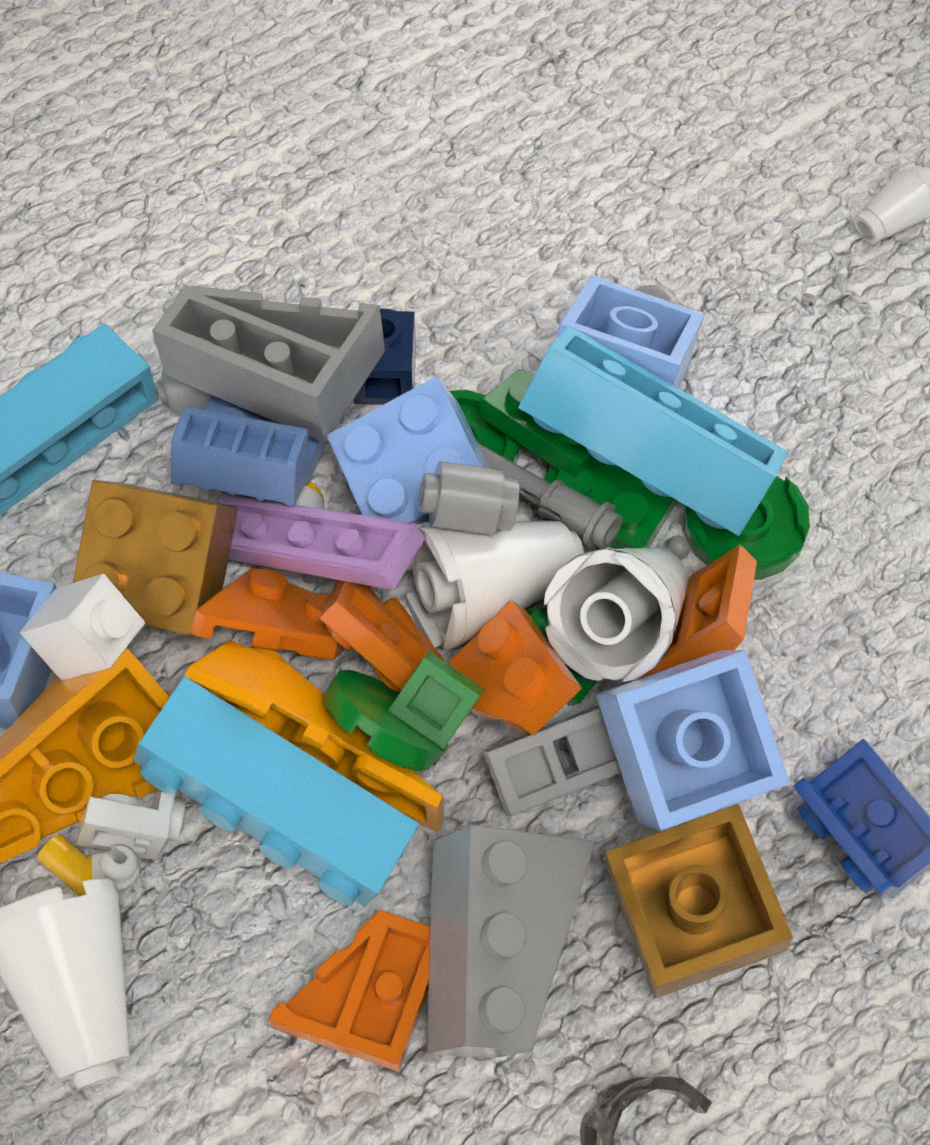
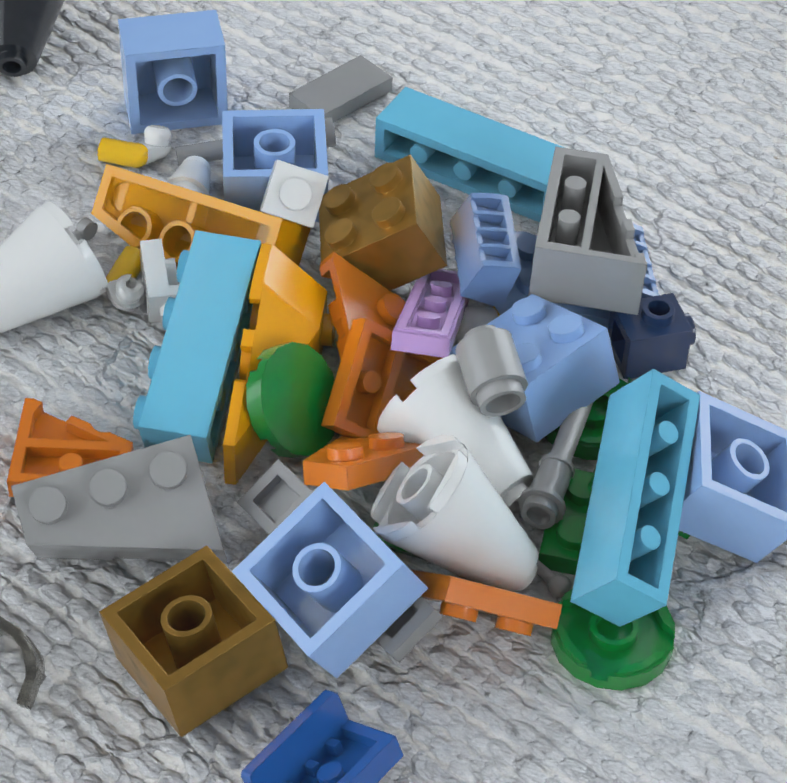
camera: 70 degrees right, 15 degrees down
(436, 699) = (316, 417): green plate -> none

